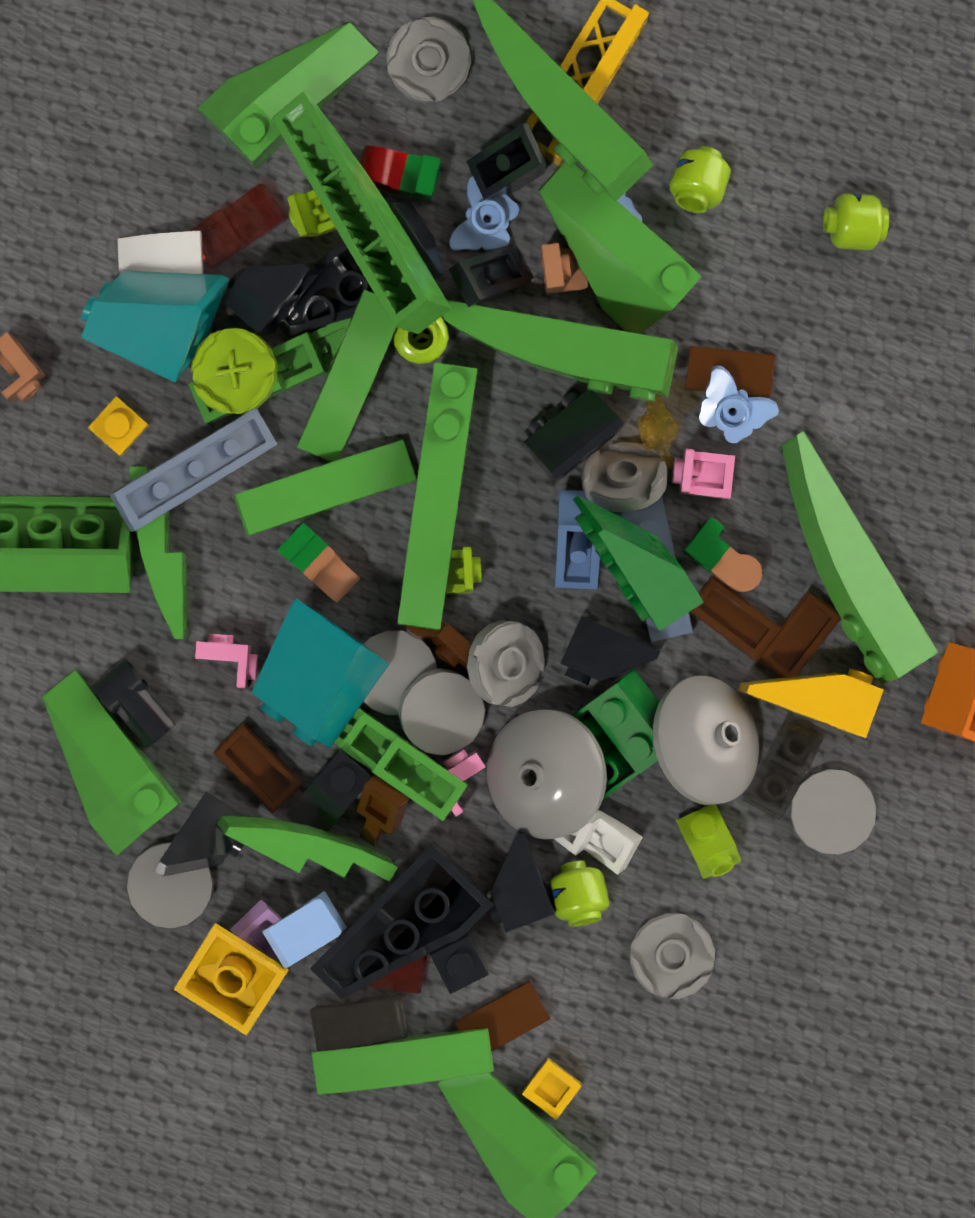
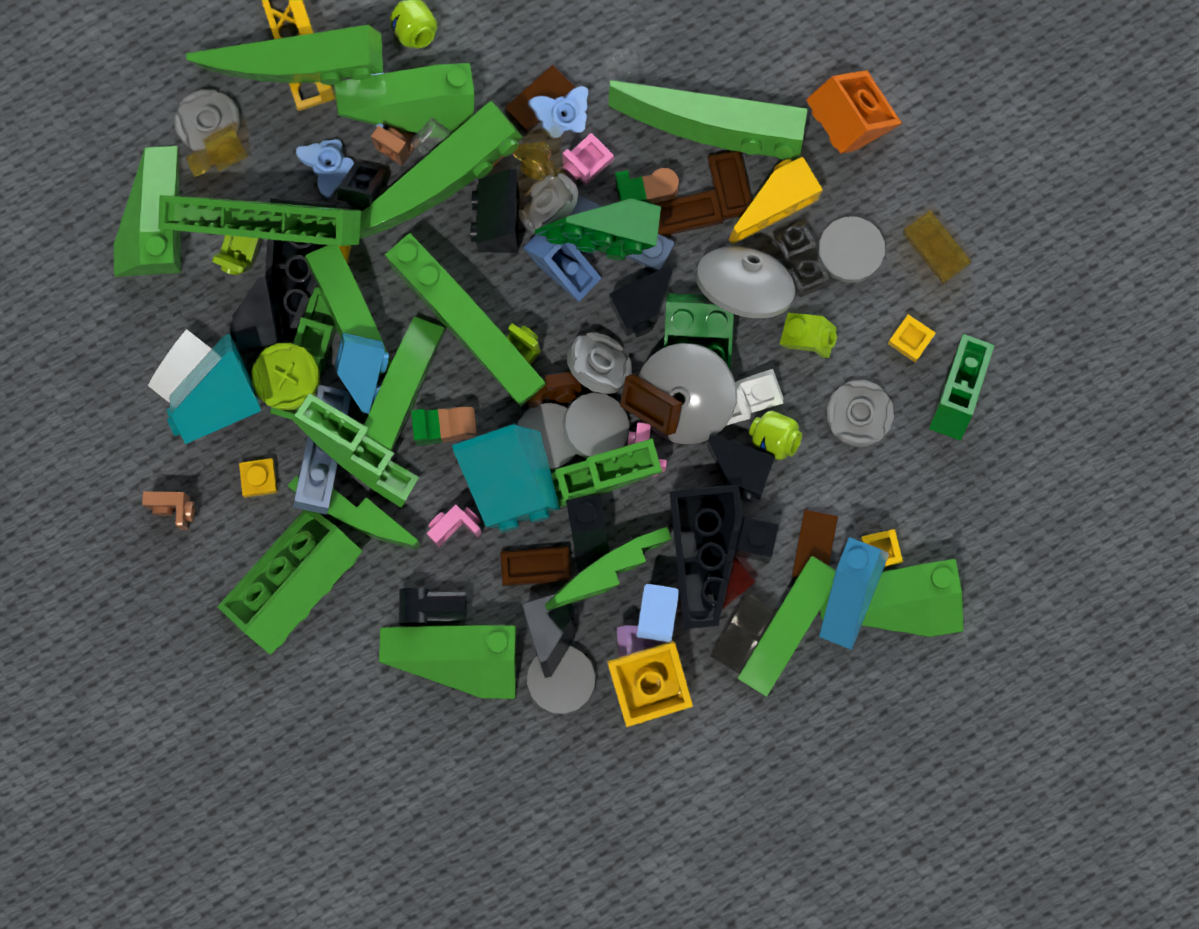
camera: 45 degrees left, 10 degrees down
(216, 506) = (347, 444): none -> bright green slope
(239, 225) = (204, 307): clear red slope -> none
(302, 435) = (359, 366): none -> dark azure slope
(382, 808) = (623, 505): reddish brown plate -> none
(402, 172) = (260, 184): leg -> none
(408, 100) = (221, 149): none -> clear yellow plate
(425, 351) = (372, 246): lime head -> none
(484, 1097) = (852, 592): none -> dark azure slope
(503, 751) = (650, 404): none -> reddish brown tile
(508, 163) = (307, 116): black slope -> none
(595, 305) = (430, 136): none -> clear tile
(780, 1036) = (962, 387): none -> green slope
(789, 946) = (911, 338): none -> yellow plate
(904, 895) = (936, 247): none -> clear yellow plate

